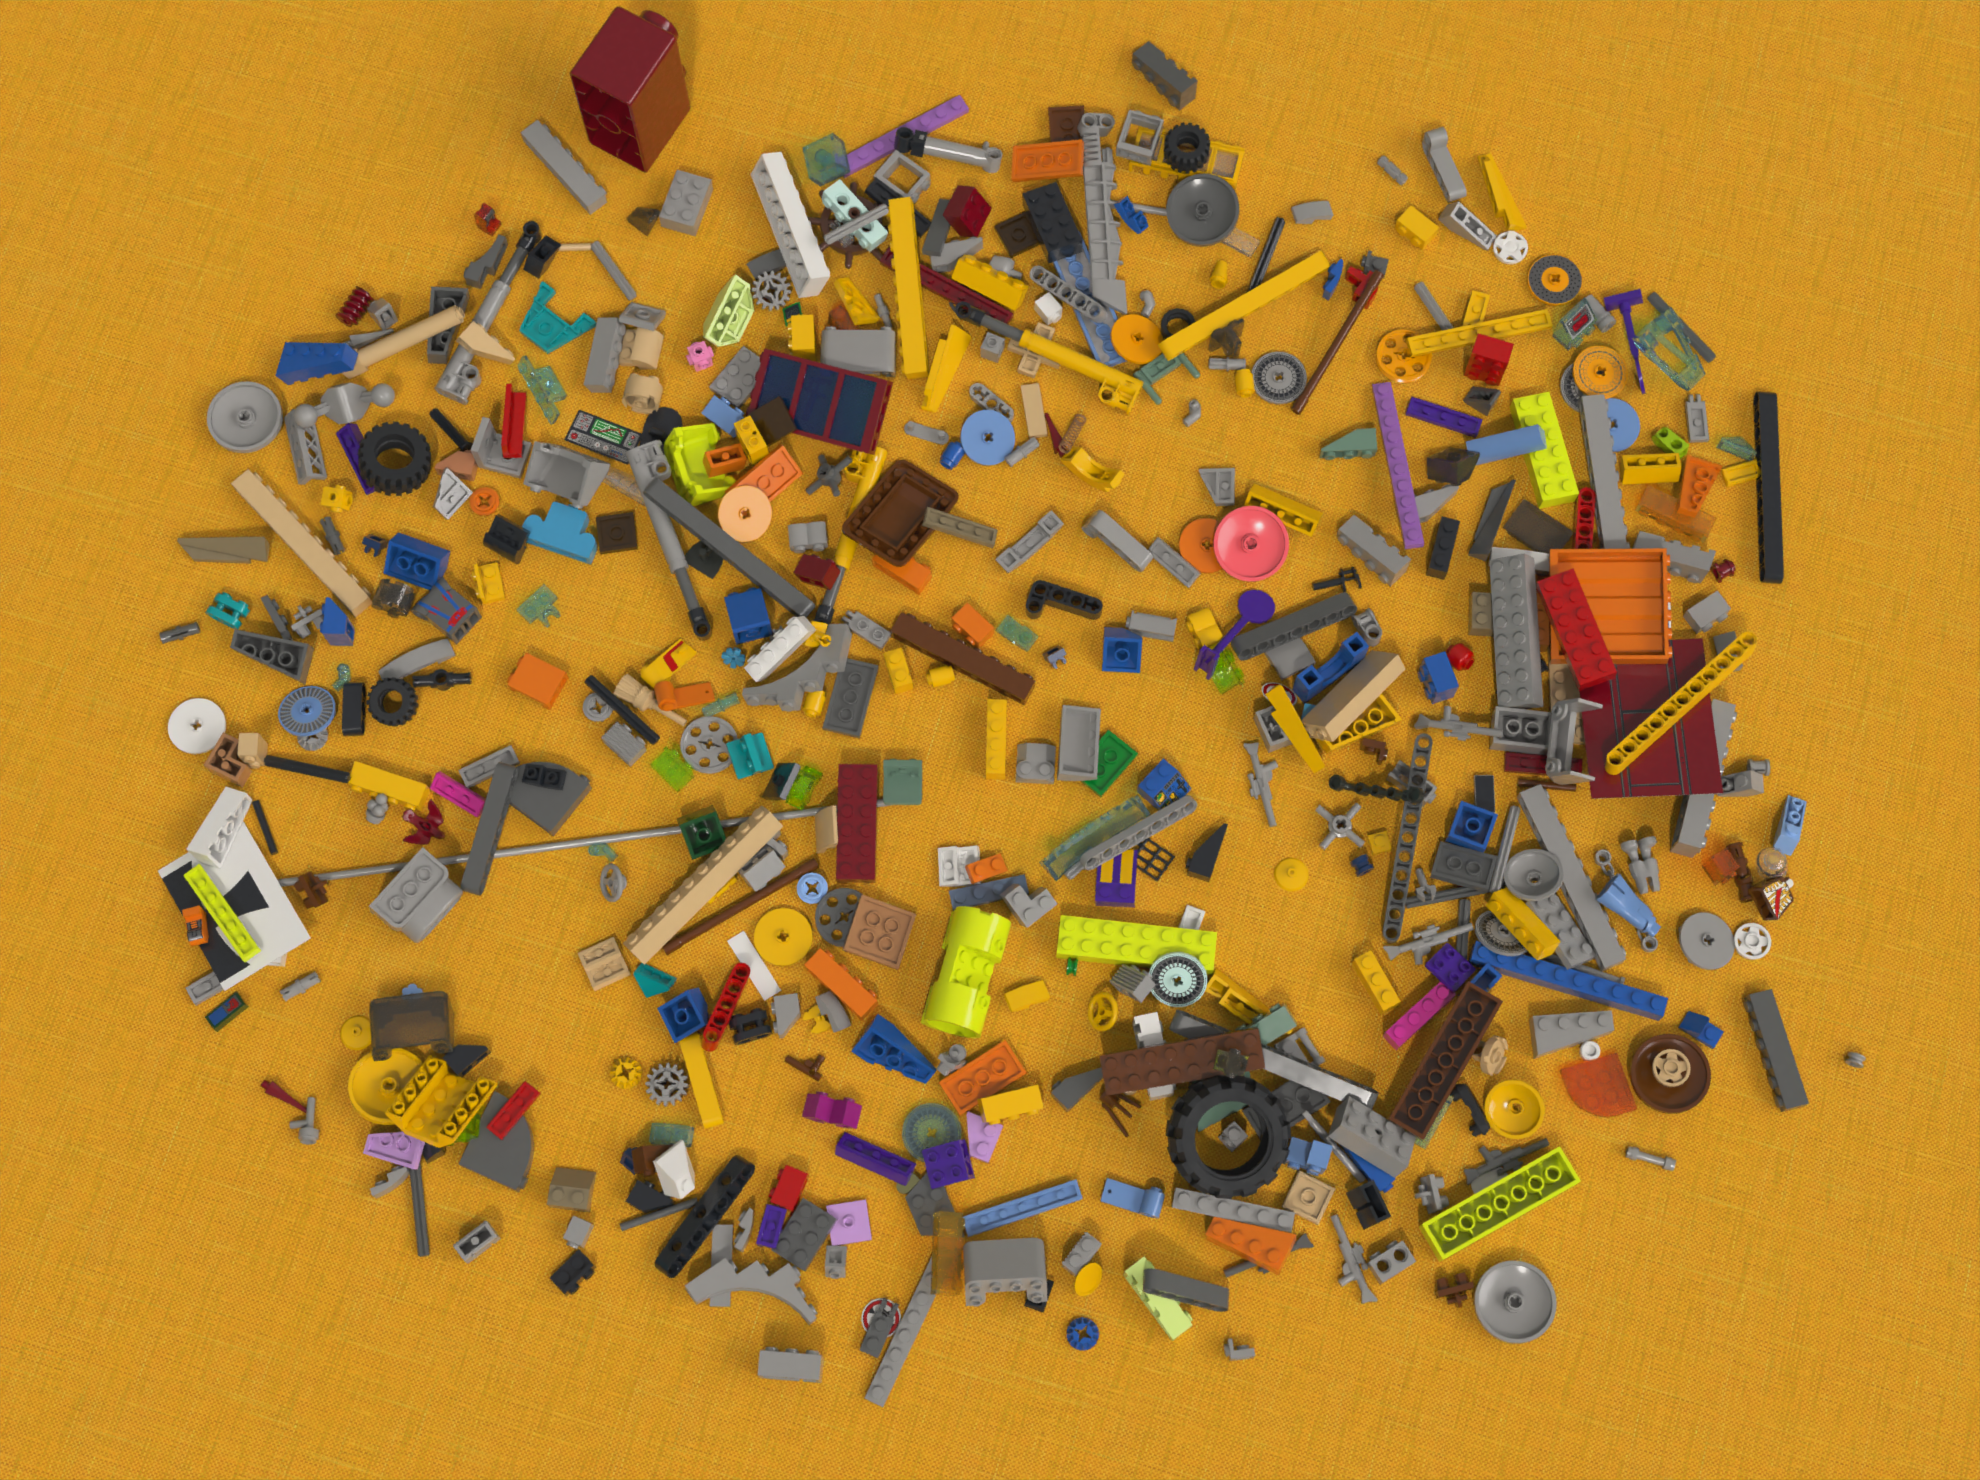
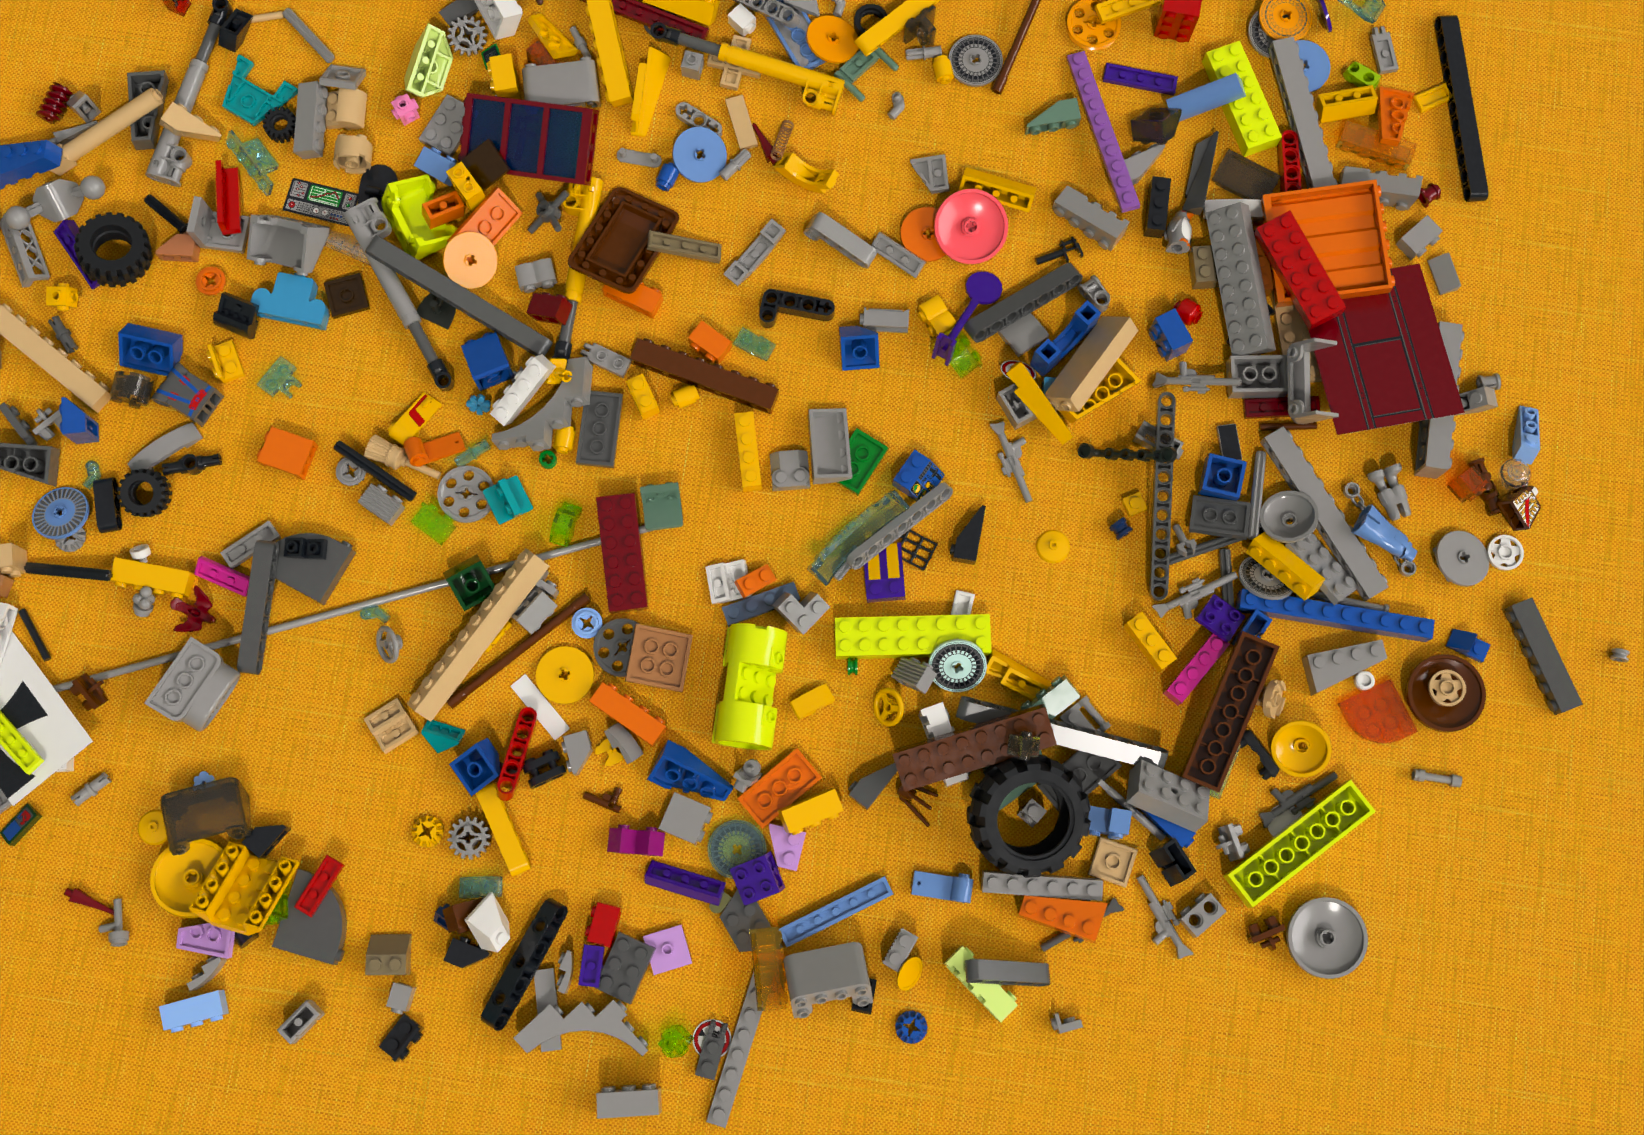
camera: 10 degrees left, 5 degrees up
(372, 1217) = (194, 1011): none -> light blue brick
(374, 542) = (105, 335): dark blue tile -> none
(380, 760) = (140, 552): none -> white tile
(419, 1212) = (240, 998): dark grey axle -> none
(450, 494) = (175, 278): light grey wing -> none
(487, 264) = (183, 43): dark grey slope -> none
(573, 346) = (273, 117): none -> black tyre
(658, 1214) = (478, 967): dark grey bar -> none
(781, 781) = (542, 521): black plate -> none
(791, 725) = (542, 457): none -> green bush
(826, 829) = (592, 563): tan slope -> none
(835, 1261) = (659, 990): light grey bracket -> none
(844, 1313) = (675, 1041): none -> clear neon green brick
(884, 1095) = (686, 819): none -> light grey piece
(1055, 654) = (793, 361): tile -> none
(1337, 820) = (1099, 497): light grey bar -> none
(1373, 746) = (1115, 411): reddish brown bracket -> none
(1461, 577) = (1179, 233): none -> light grey animal
(1482, 399) = (1175, 56): dark grey slope -> none
(1676, 709) = (1408, 336): yellow beam -> none
(1737, 446) = (1426, 73): clear light blue slope -> none

